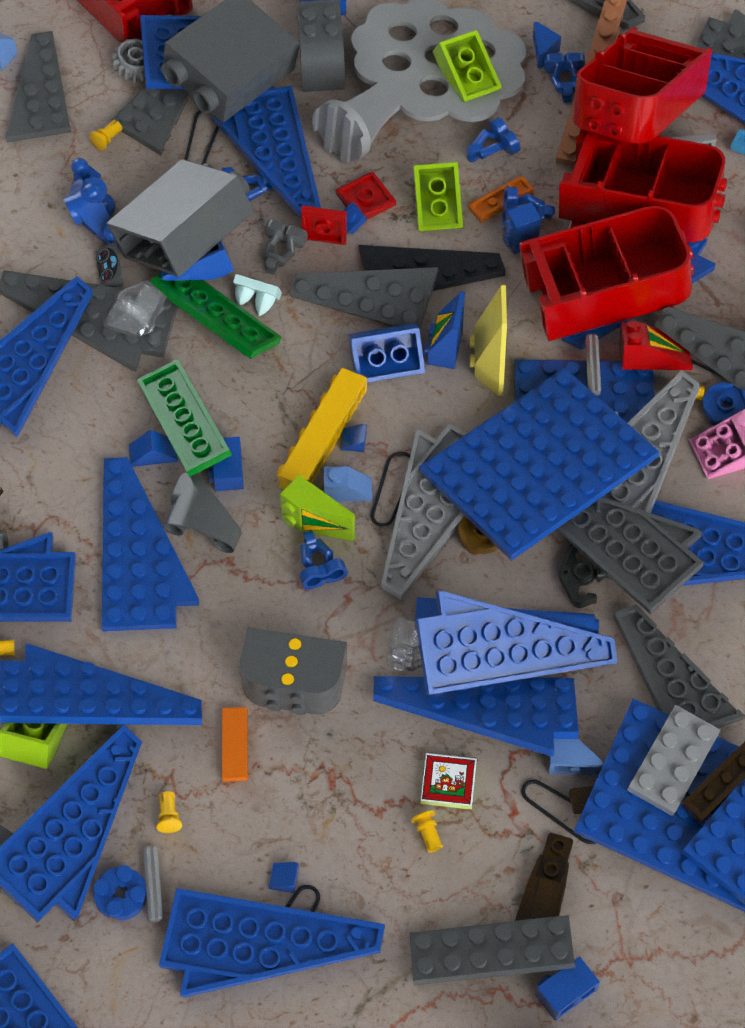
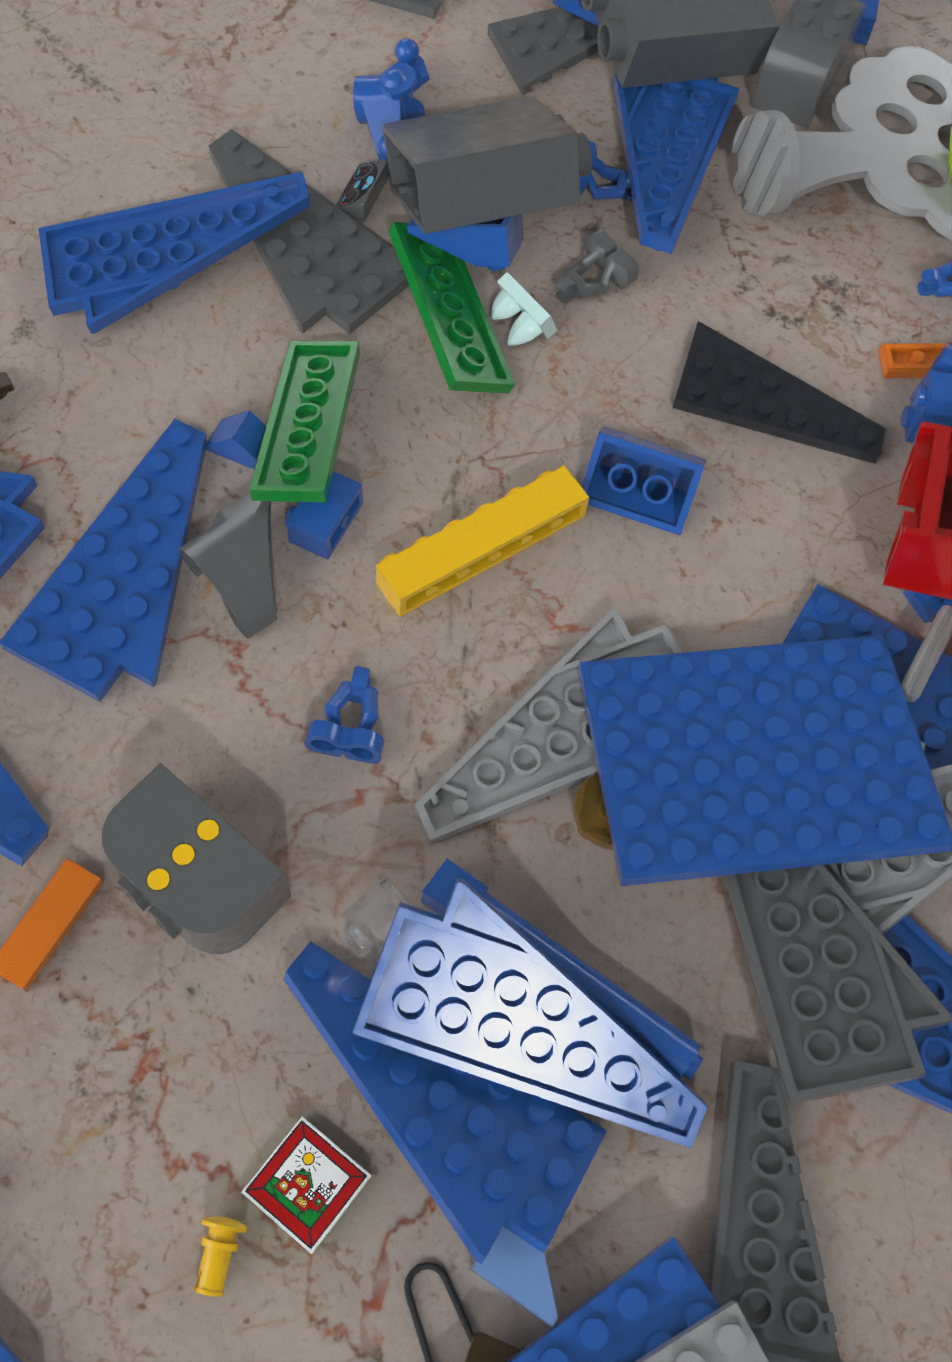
camera: 25 degrees right, 5 degrees up
(103, 137) = (466, 37): yellow pin -> none
(136, 310) = (348, 252): clear slope -> none
(191, 137) = (578, 88): black piece -> none
(312, 509) = (386, 642): lime slope -> none
(324, 224) = (667, 269): red tile -> none
(347, 484) = (463, 631): medium blue slope -> none
(354, 438) = (522, 573): blue slope -> none
(355, 217) = (712, 283): blue plate -> none
(368, 194) = (748, 268): red tile -> none
(378, 295) = (678, 396): dark grey wing -> none
(379, 492) = (502, 670): black piece -> none
(438, 196) = (846, 311): lime slope -> none
(446, 334) = (741, 497): blue slope -> none
(490, 343) = (793, 540): light yellow wedge -> none
(577, 574) = (714, 960): pearl dark grey piece -> none

